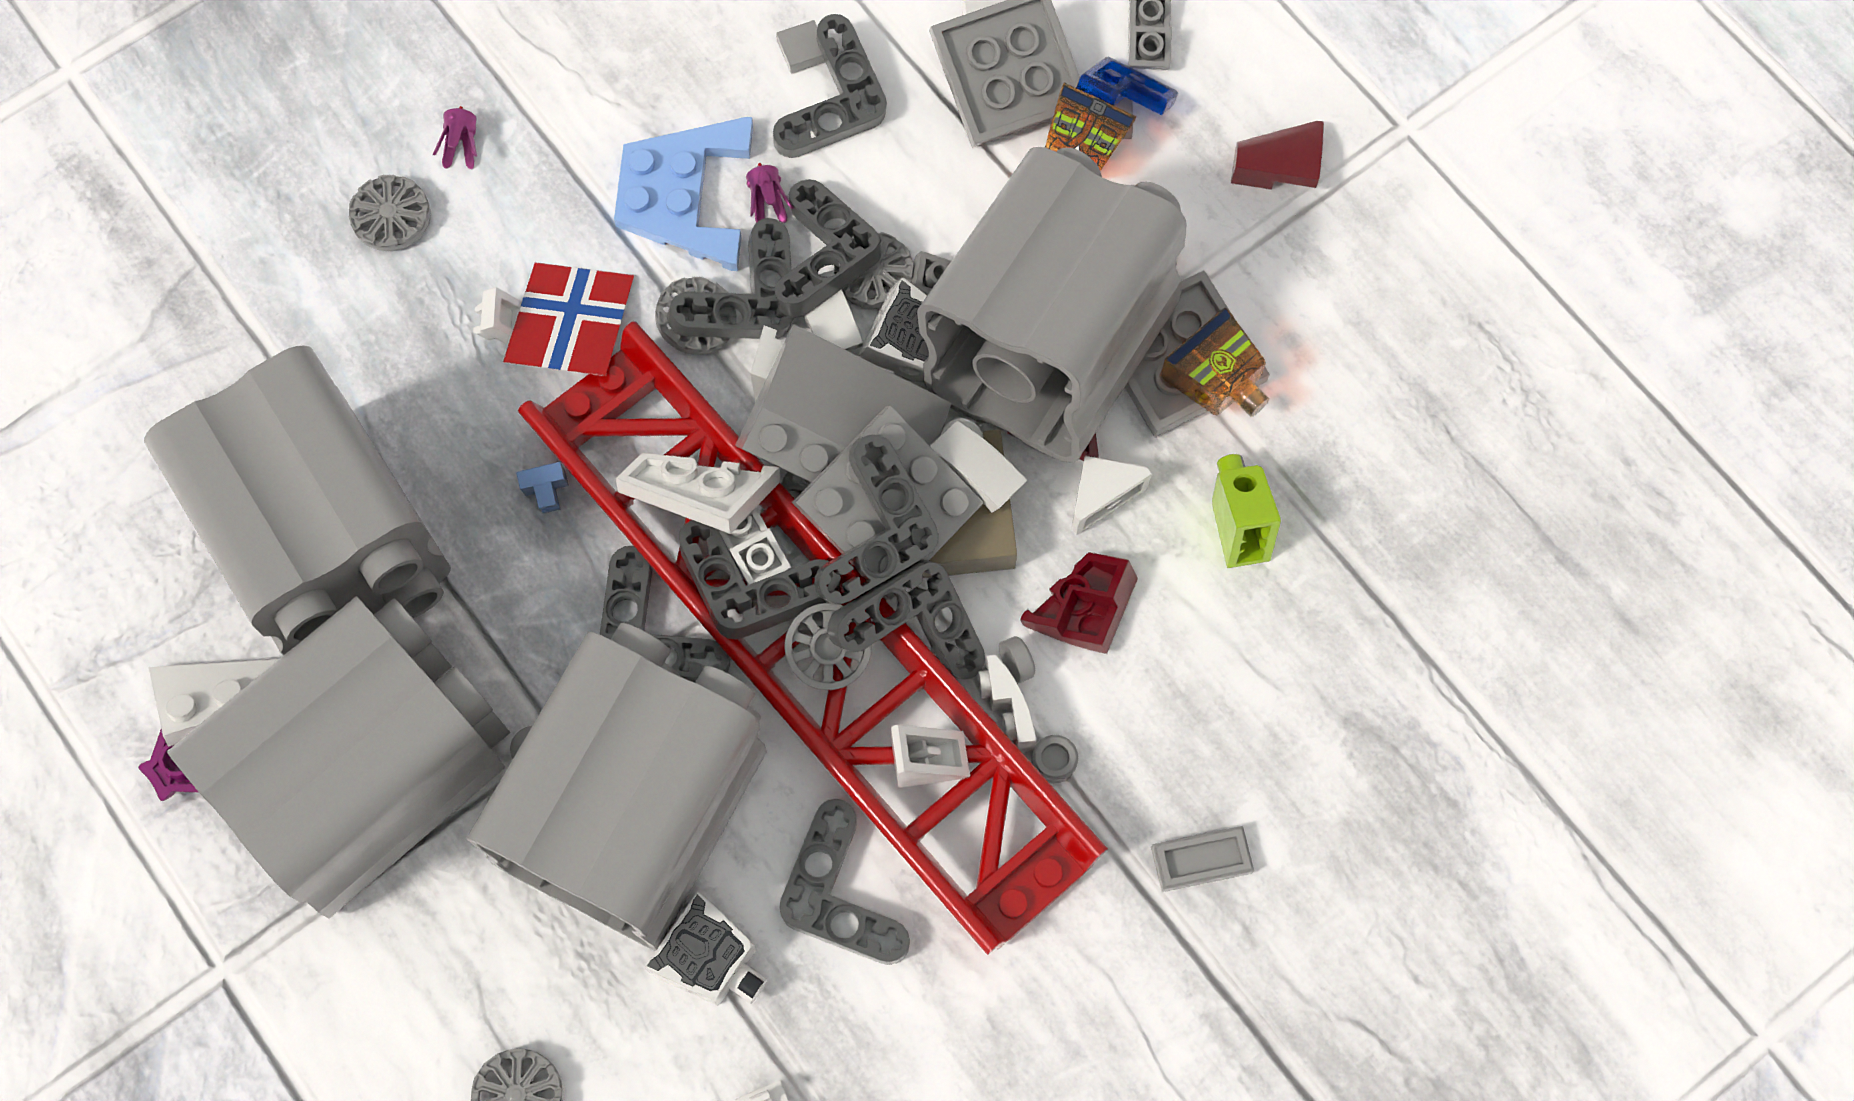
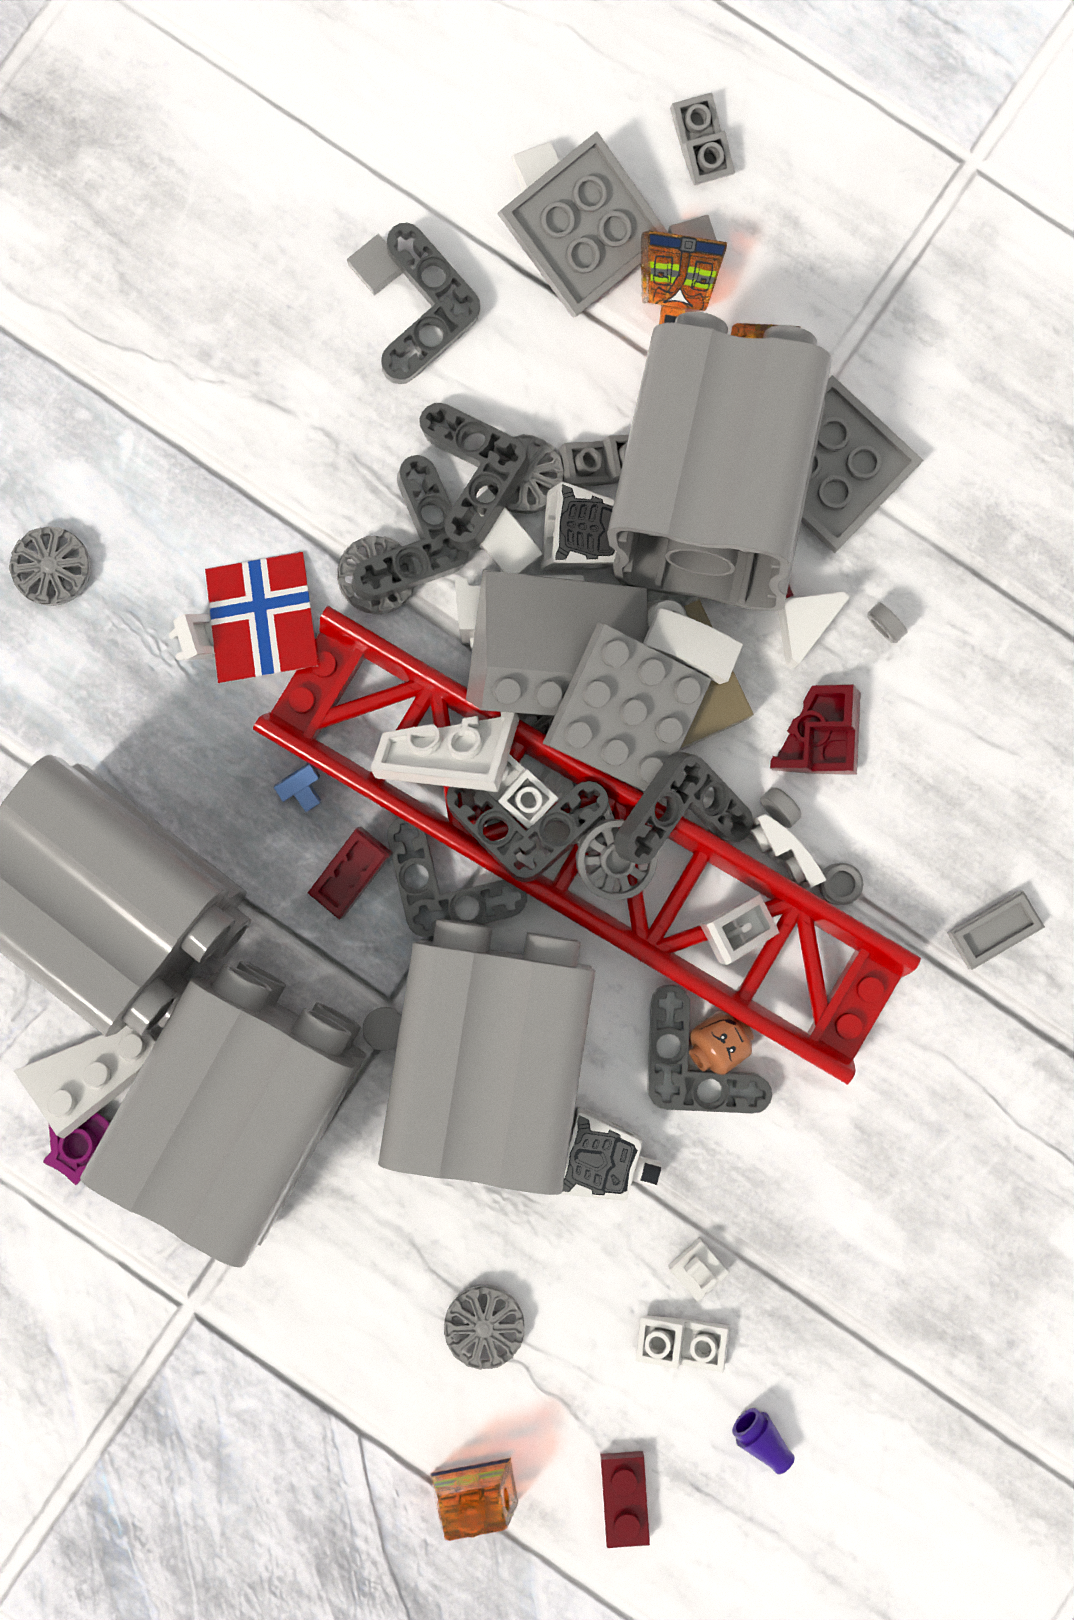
camera: 20 degrees left, 15 degrees up
(458, 125) = (79, 458): flat silver piece -> none
(559, 583) = (350, 872): none -> dark red plate
(664, 187) = (298, 454): light blue wing -> none
(765, 184) = (393, 421): flat silver piece -> none
(873, 875) = (720, 1043): none -> nougat head
(895, 522) = (647, 735): dark grey beam -> none
(1114, 81) = (691, 205): clear blue tile -> none
(1184, 516) = (887, 623): none -> light grey tile
(1218, 367) = (880, 472): clear orange torso -> none
(1244, 512) = (942, 602): lime torso -> none
(1281, 157) = (867, 233): dark red slope -> none

